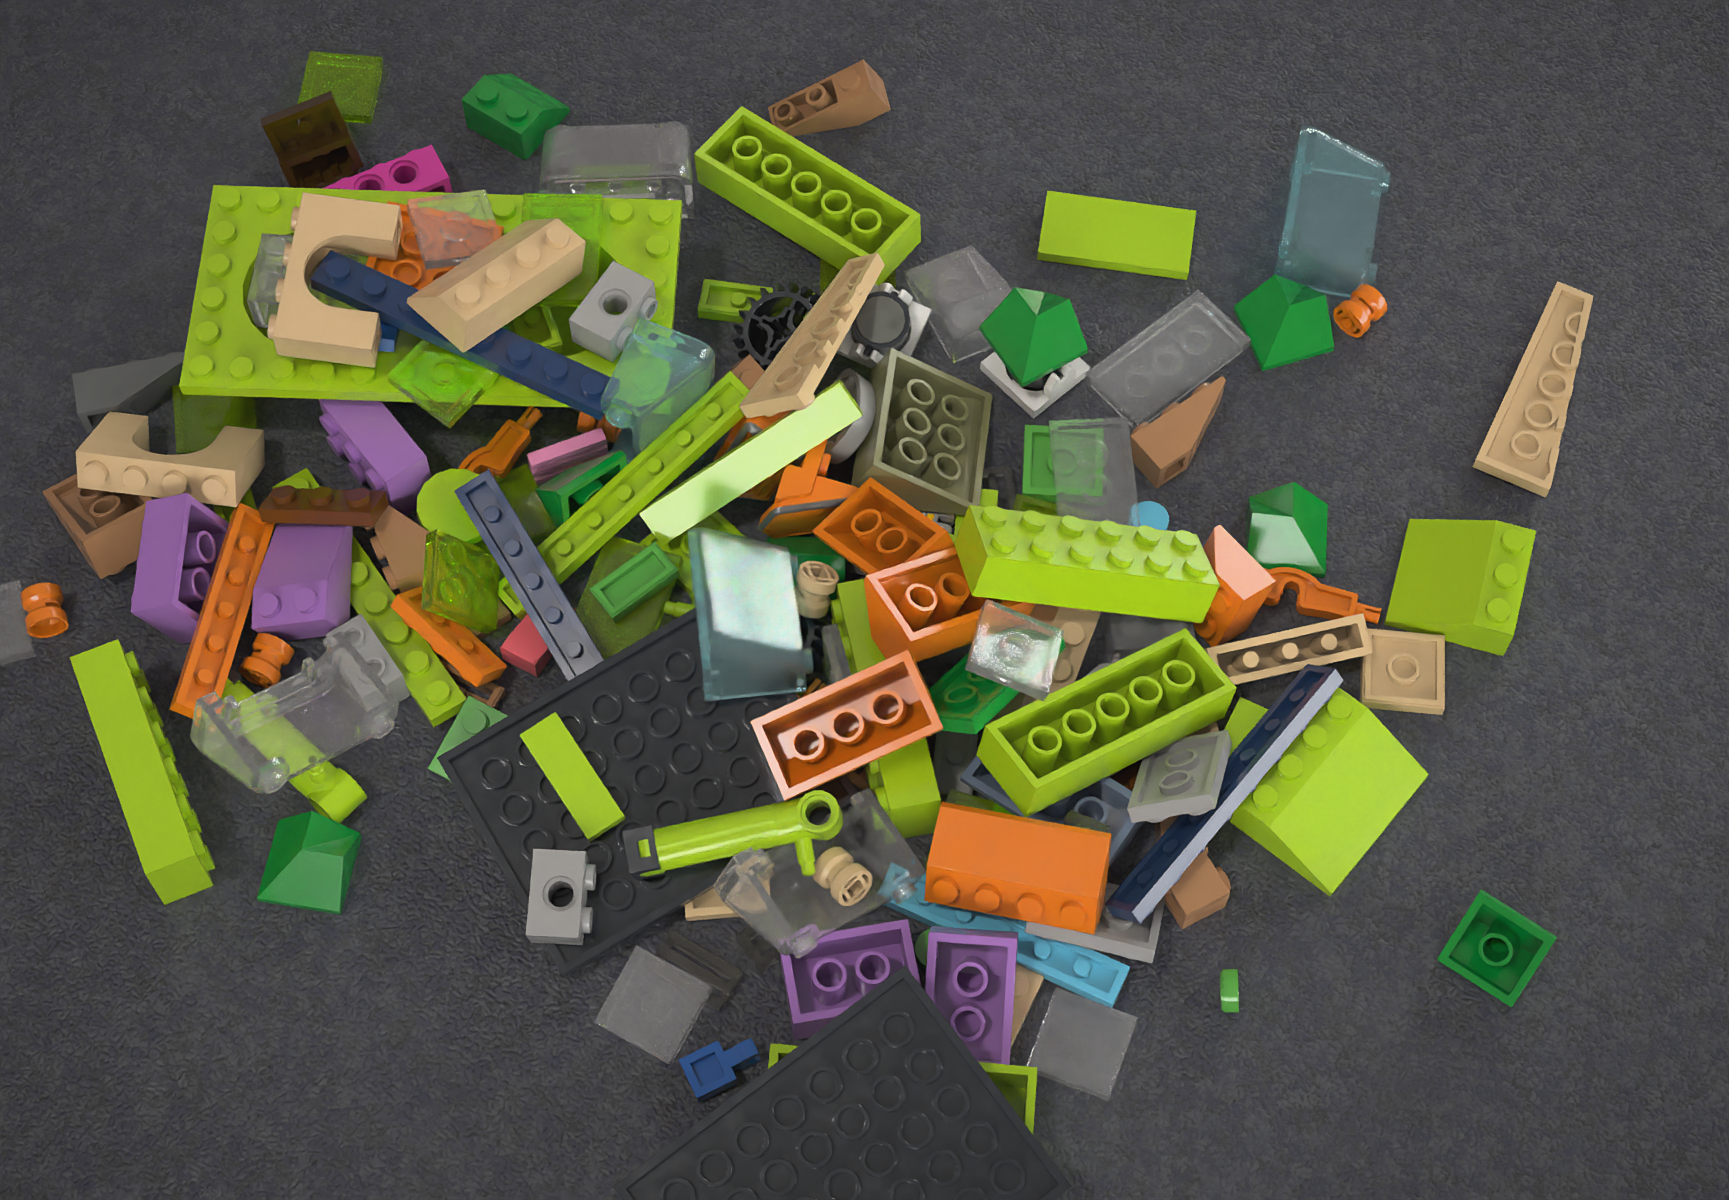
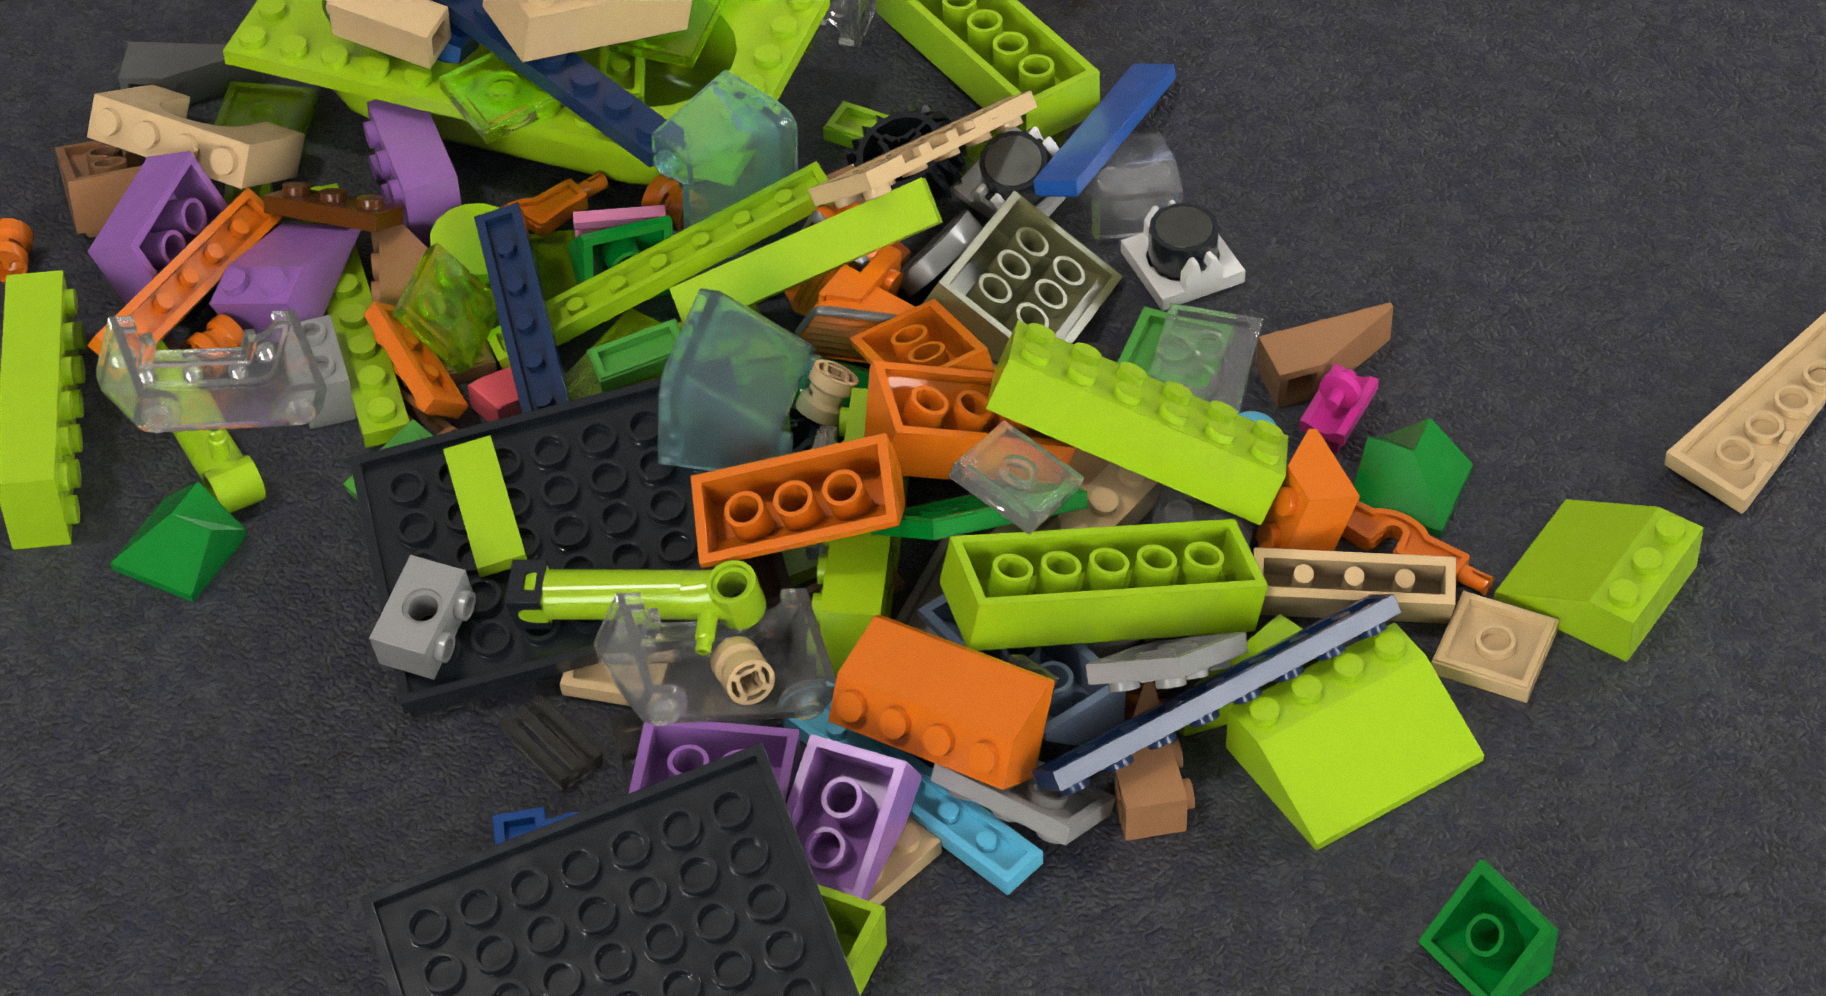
camera: 20 degrees right, 15 degrees down
(615, 291) = (700, 57): light grey brick -> none
(653, 1005) = (489, 759): clear tile -> none
(937, 264) = (1104, 130): none -> blue tile
(1034, 333) = (1181, 208): green slope -> none
(1082, 1043) = (959, 920): clear tile -> none
(1117, 235) = (1332, 155): lime tile -> none
(1167, 359) = (1342, 280): clear tile -> none
(1212, 483) = (1338, 405): none -> dark pink hips
(1229, 991) = (1151, 905): bright green tile -> none
(1285, 322) = (1494, 276): green slope -> none
(1331, 214) = (1582, 177): clear light blue windscreen -> none
(1364, 306) = (1585, 281): orange wheel -> none

